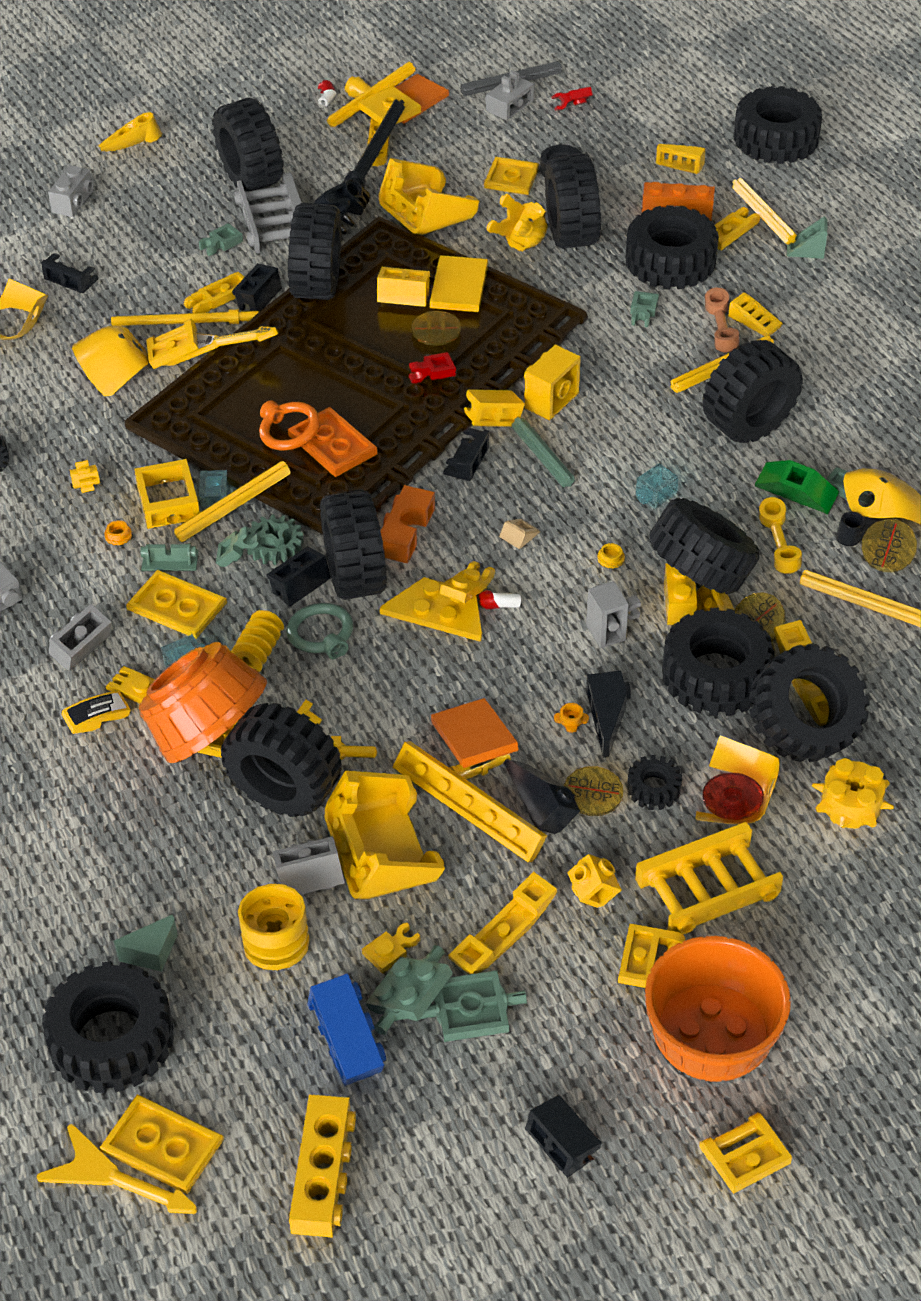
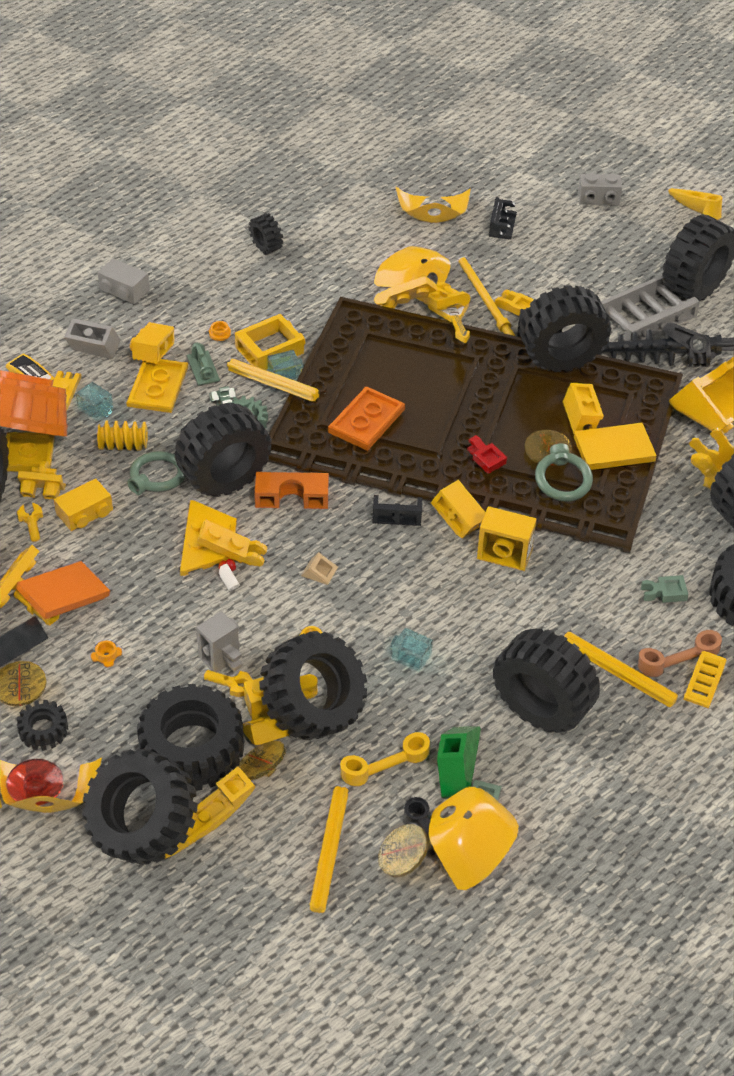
camera: 70 degrees right, 0 degrees up
(84, 476) = (268, 294): yellow gear -> none
(116, 586) = (152, 342): none -> yellow brick
(159, 367) = (405, 292): none -> yellow hinge
(223, 237) = (601, 289): sand green plate -> none
(274, 413) = (378, 372): orange piece -> none
(350, 695) = (83, 505): none -> yellow brick
(461, 316) = (560, 455): none -> sand green piece
(543, 452) = (427, 561): sand green axle -> none
(607, 703) = (117, 673): black slope -> none
(643, 628) = (231, 682): none -> yellow bar
(853, 794) = (59, 874): yellow brick -> none

